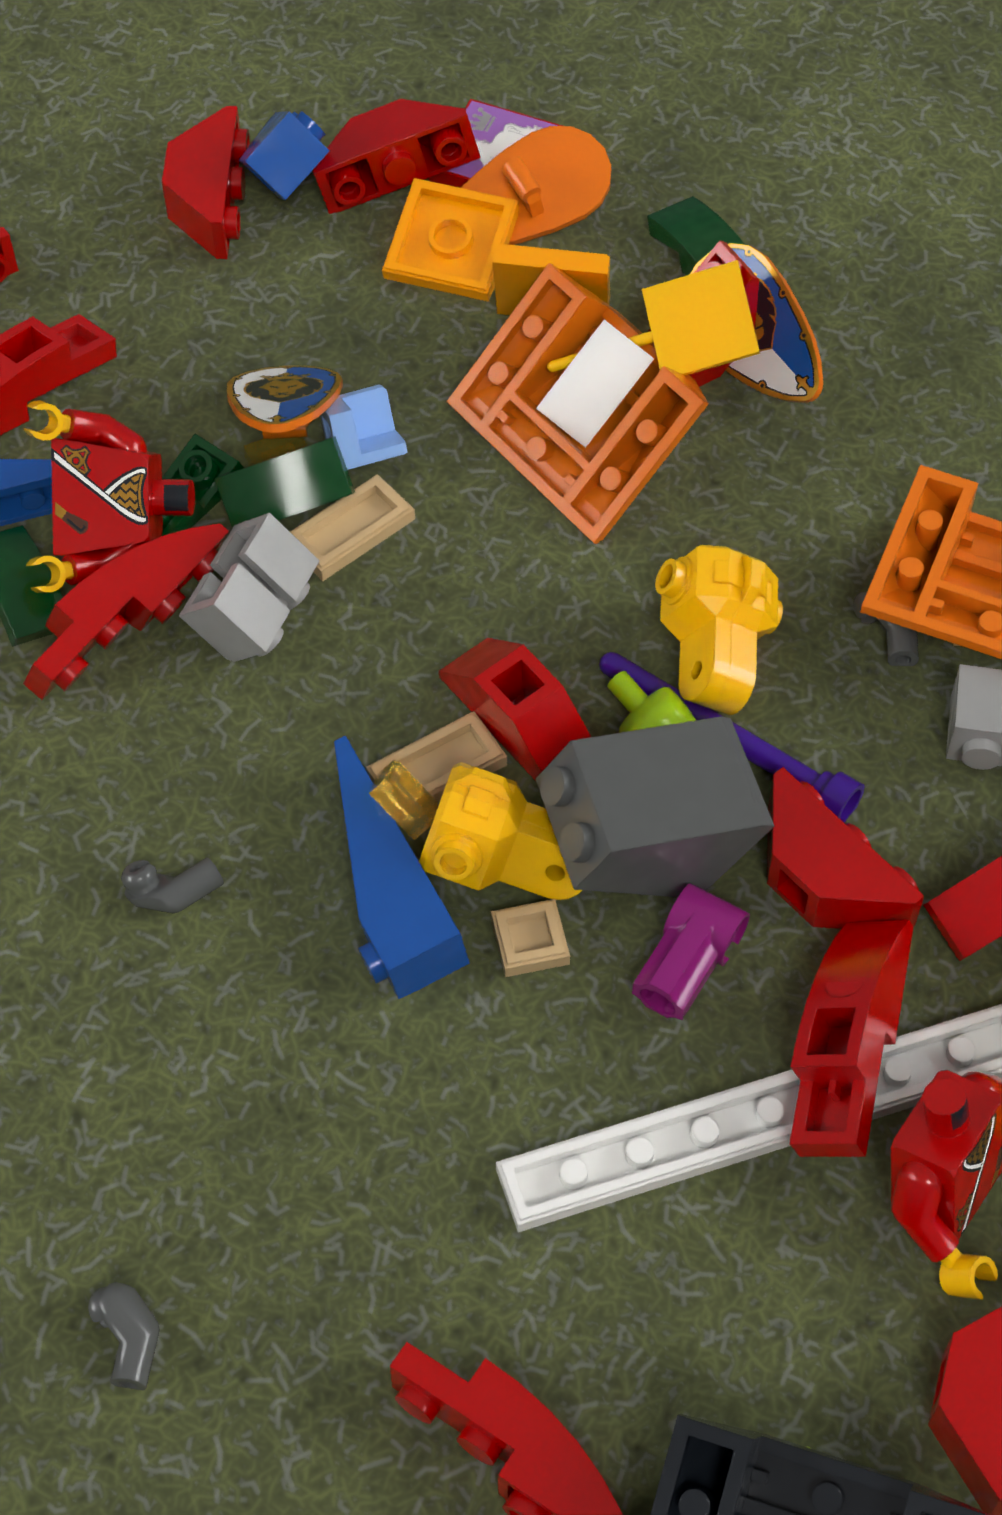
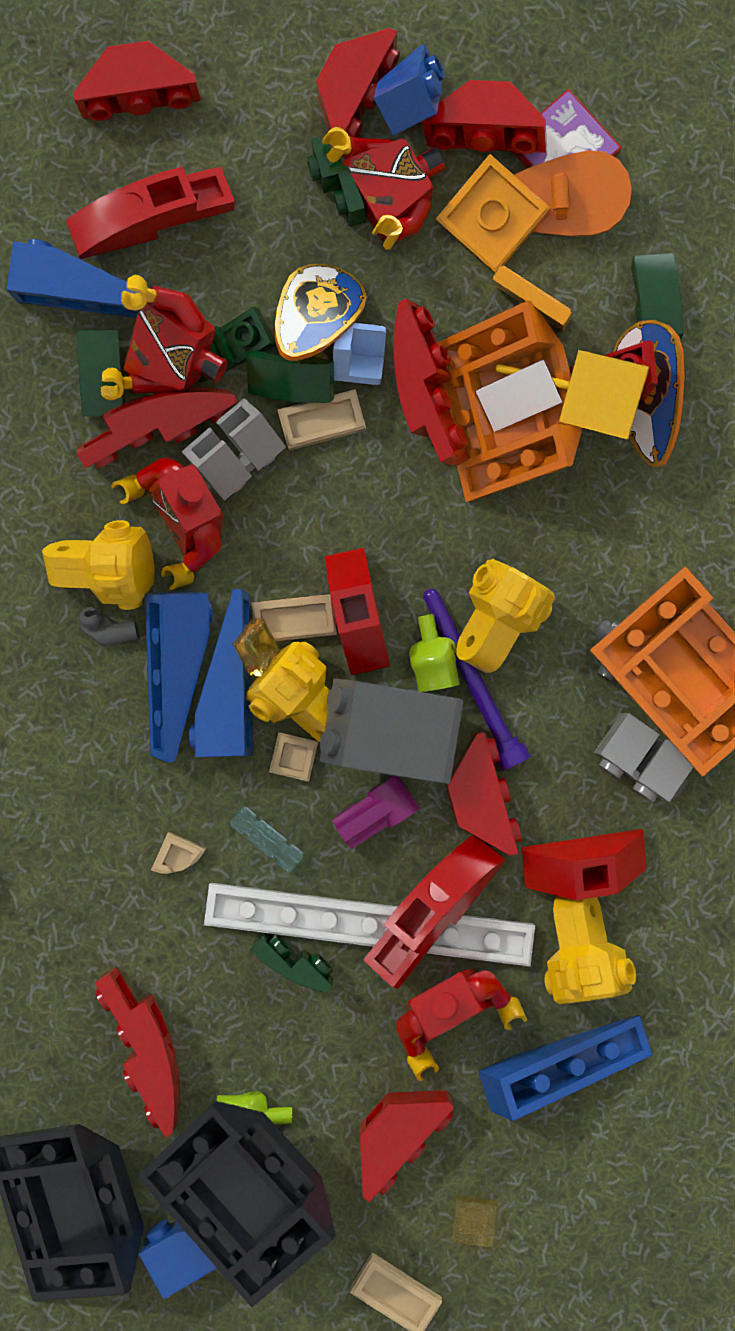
camera: 25 degrees right, 30 degrees up
(143, 784) = (113, 565): none -> yellow piece
(216, 679) = (186, 510): none -> red torso
(235, 270) = (338, 179): none -> dark green slope
(290, 868) = (175, 650): none -> blue slope
(299, 252) = (390, 181): none -> red torso
(425, 1147) = (177, 854): none -> tan tile
(467, 426) = (419, 372): none -> red slope
(550, 1062) = (266, 839): none -> clear light blue axle
(713, 1213) = (304, 970): none -> dark green slope

